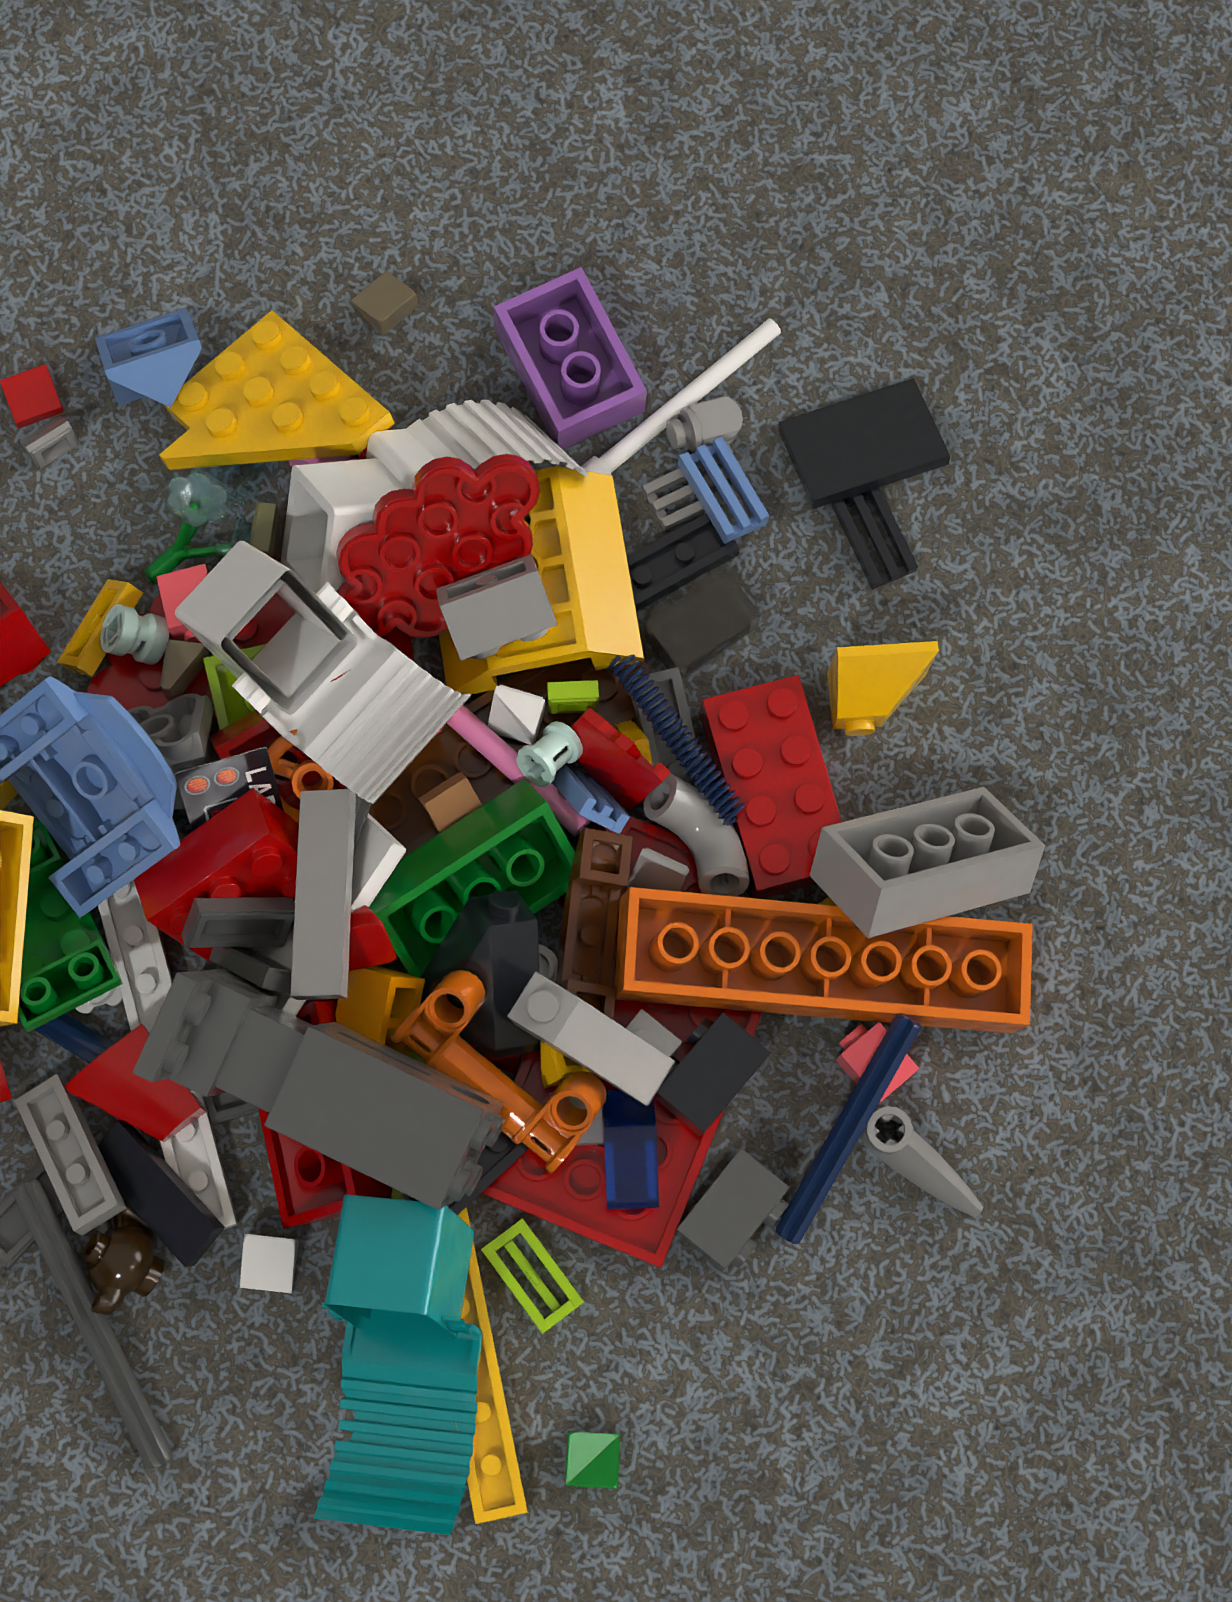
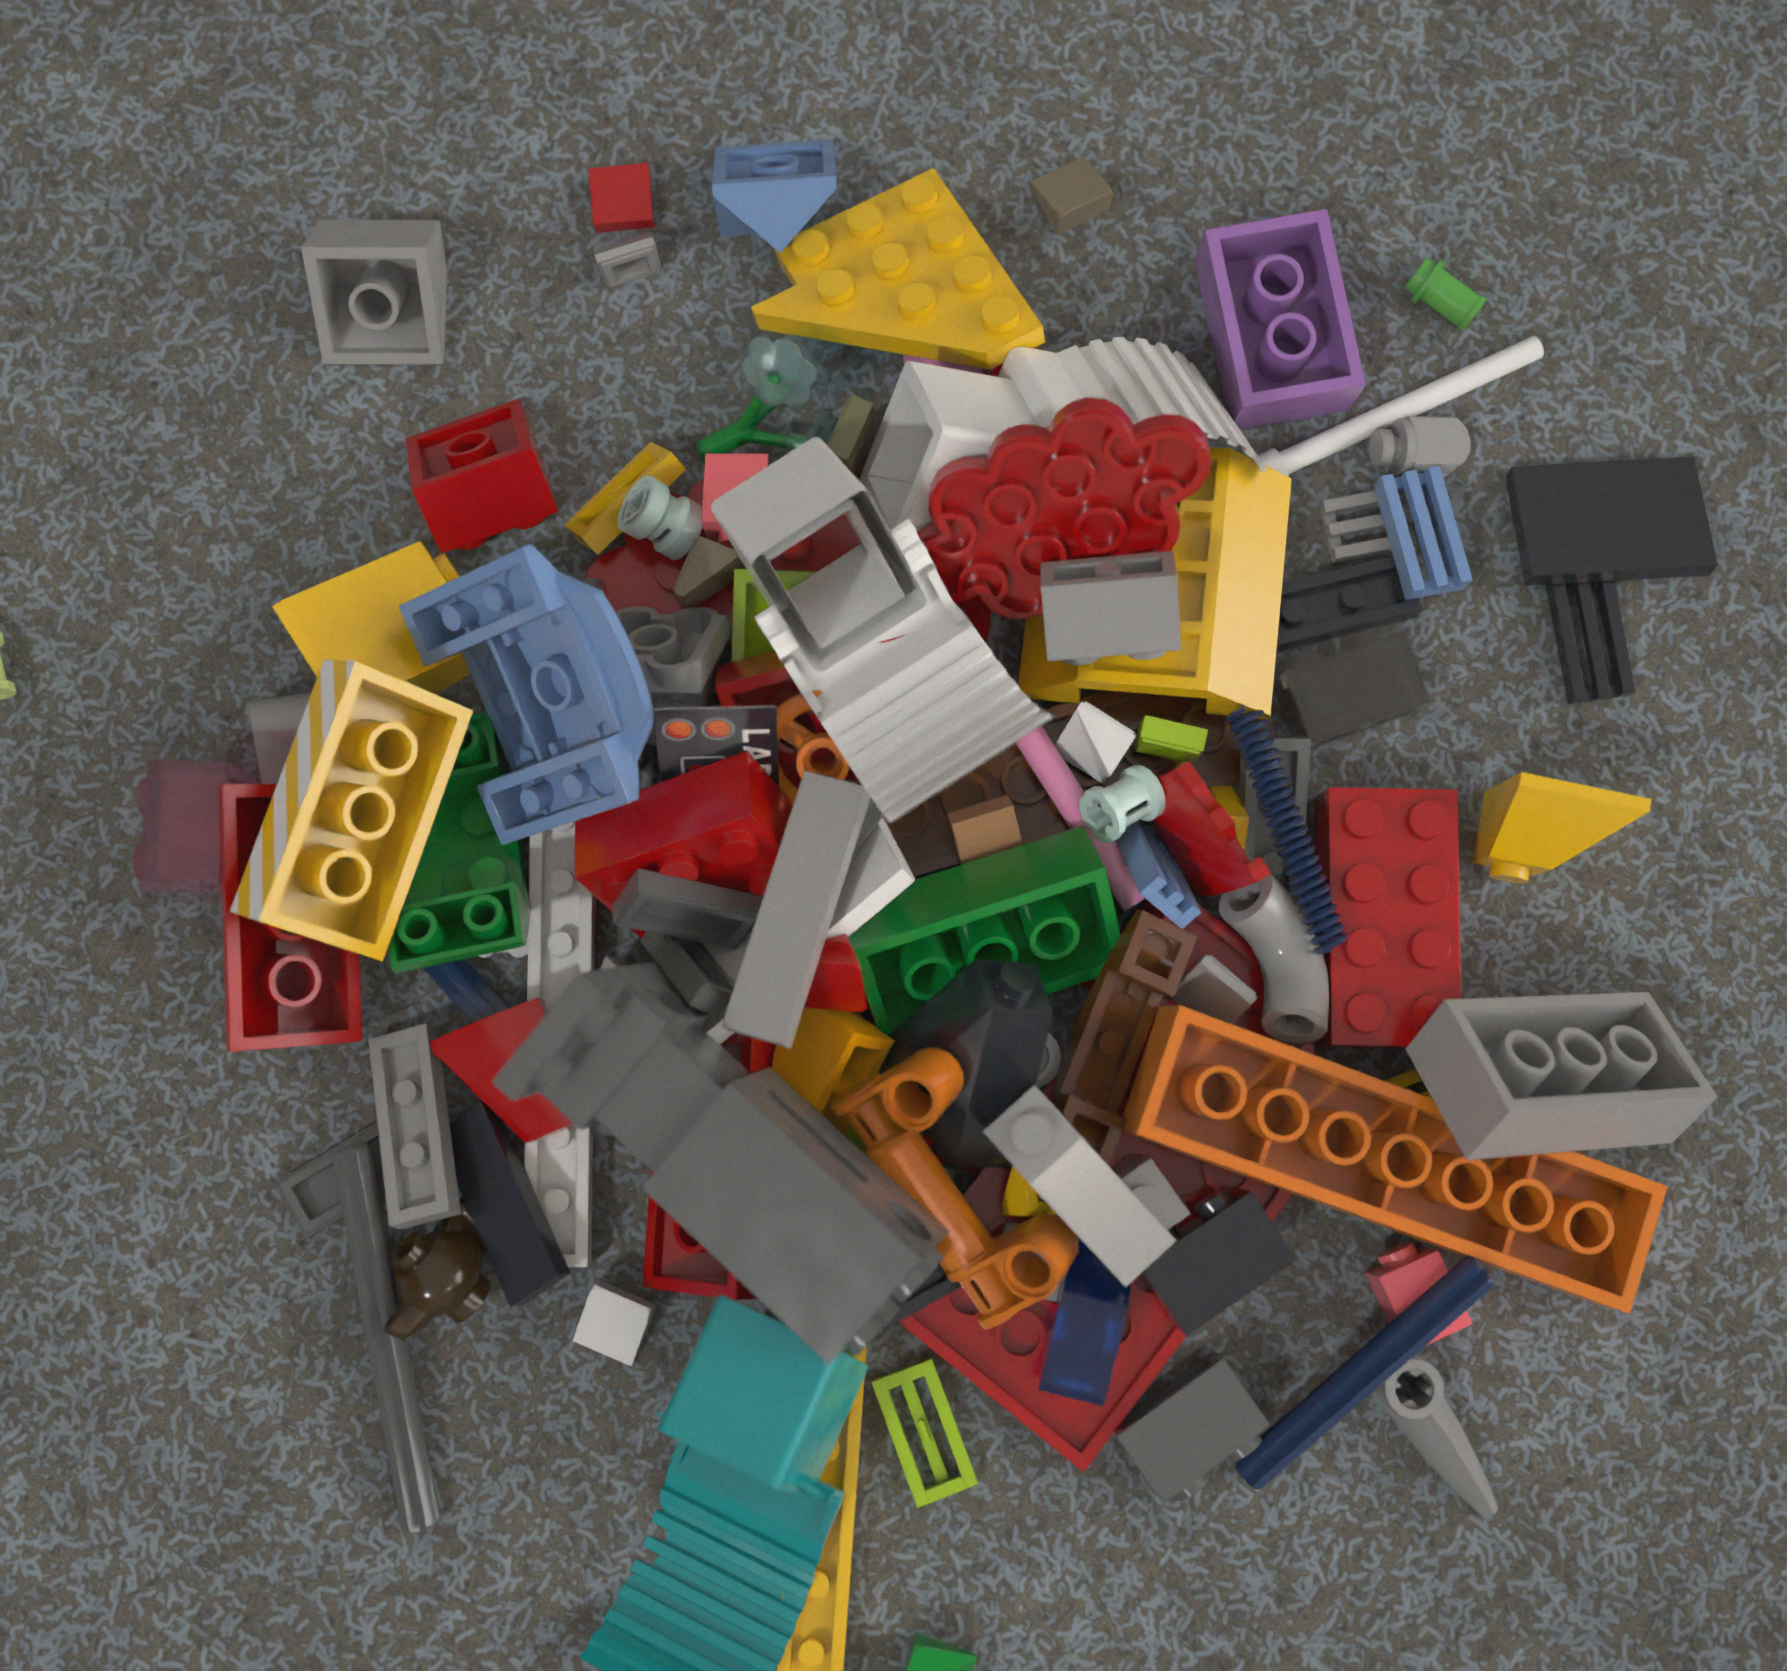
camera: 25 degrees right, 5 degrees up
(692, 304) = (1444, 293): none -> bright green pin

